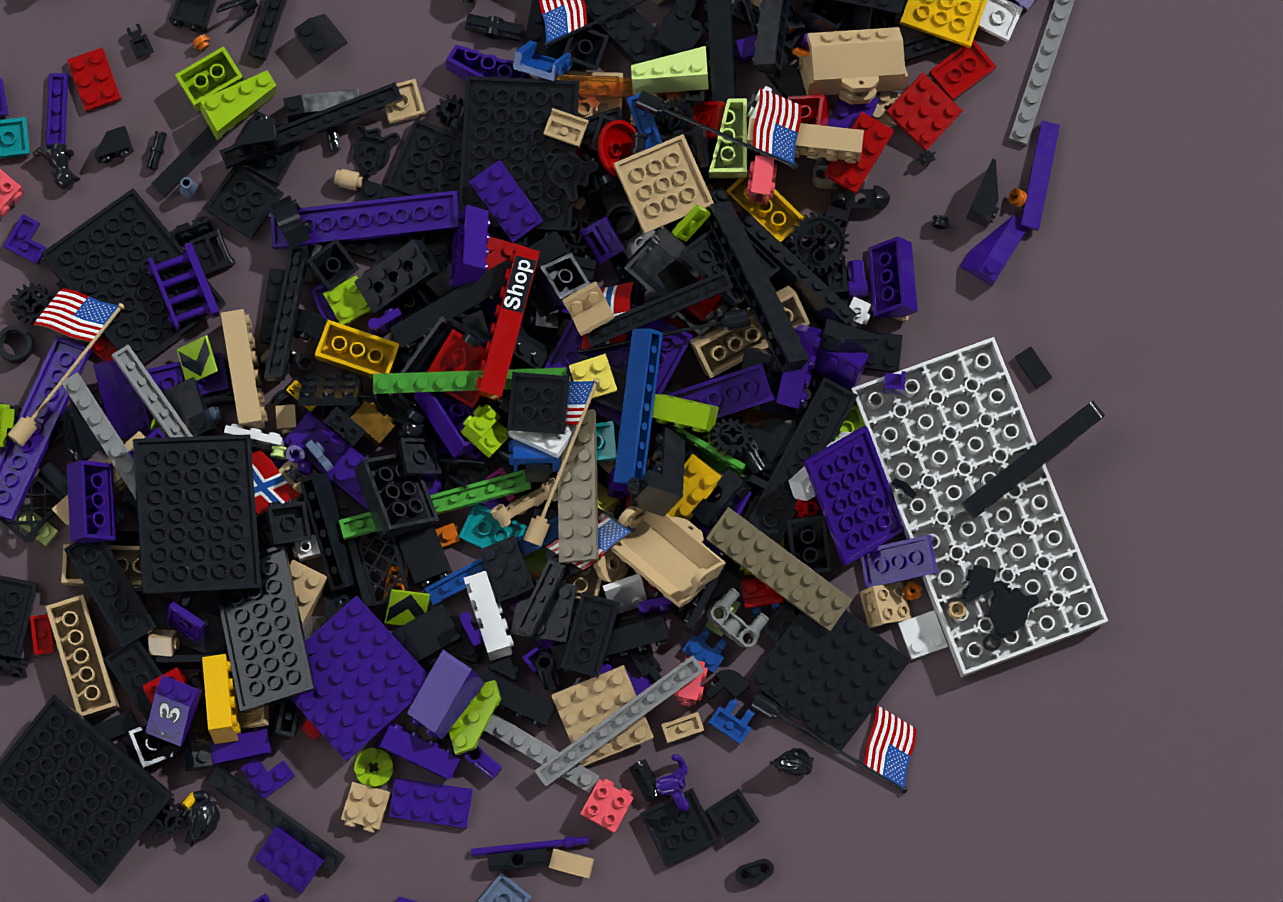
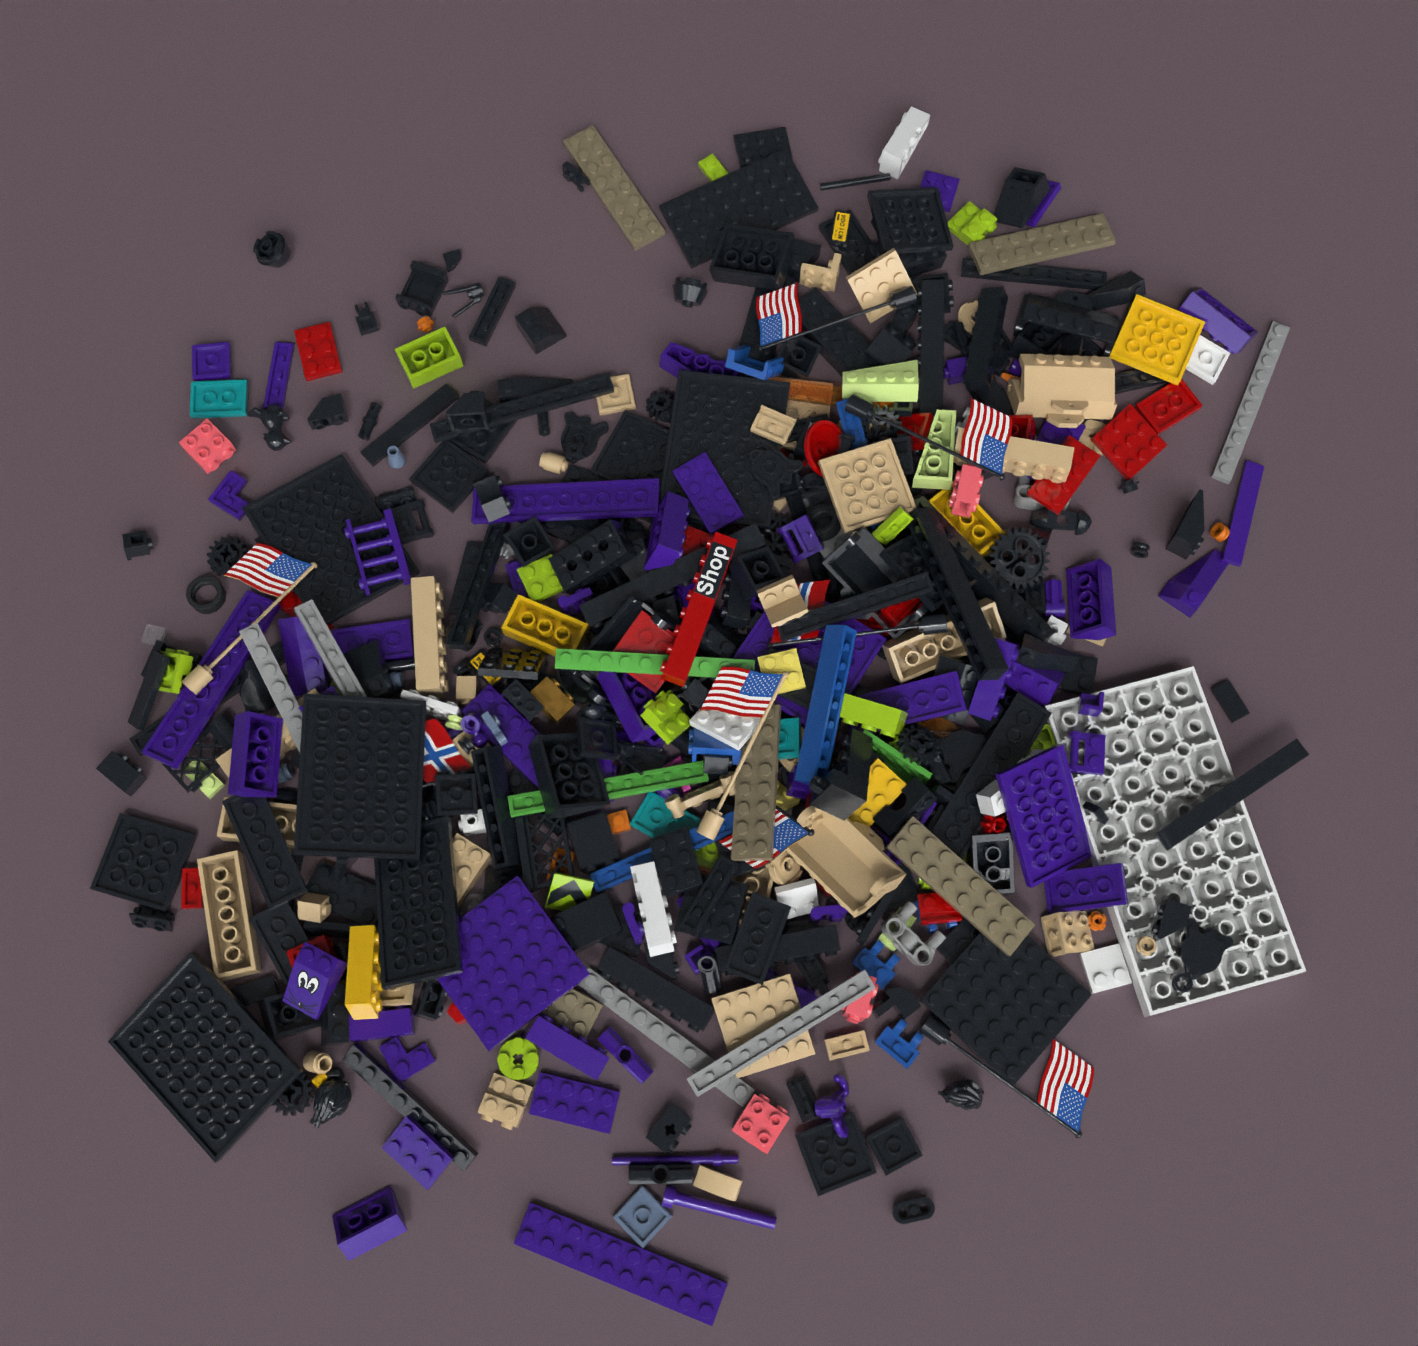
camera: 10 degrees right, 5 degrees down
(184, 786) = (317, 1062): none -> tan brick
(185, 622) = (338, 888): dark purple plate -> none
(197, 359) = (383, 623): lime piece -> none
(236, 102) = (452, 380): lime wedge -> none
(444, 695) = (598, 990): dark purple slope -> none
(475, 718) = (623, 1011): lime plate -> none
(494, 27) = (710, 331): black piece -> none
(512, 823) = (658, 1132): none -> black brick
(530, 879) = (672, 1197): none -> dark purple piece
(539, 403) = (724, 692): black plate -> none
(898, 431) = (1092, 753): none -> dark purple plate

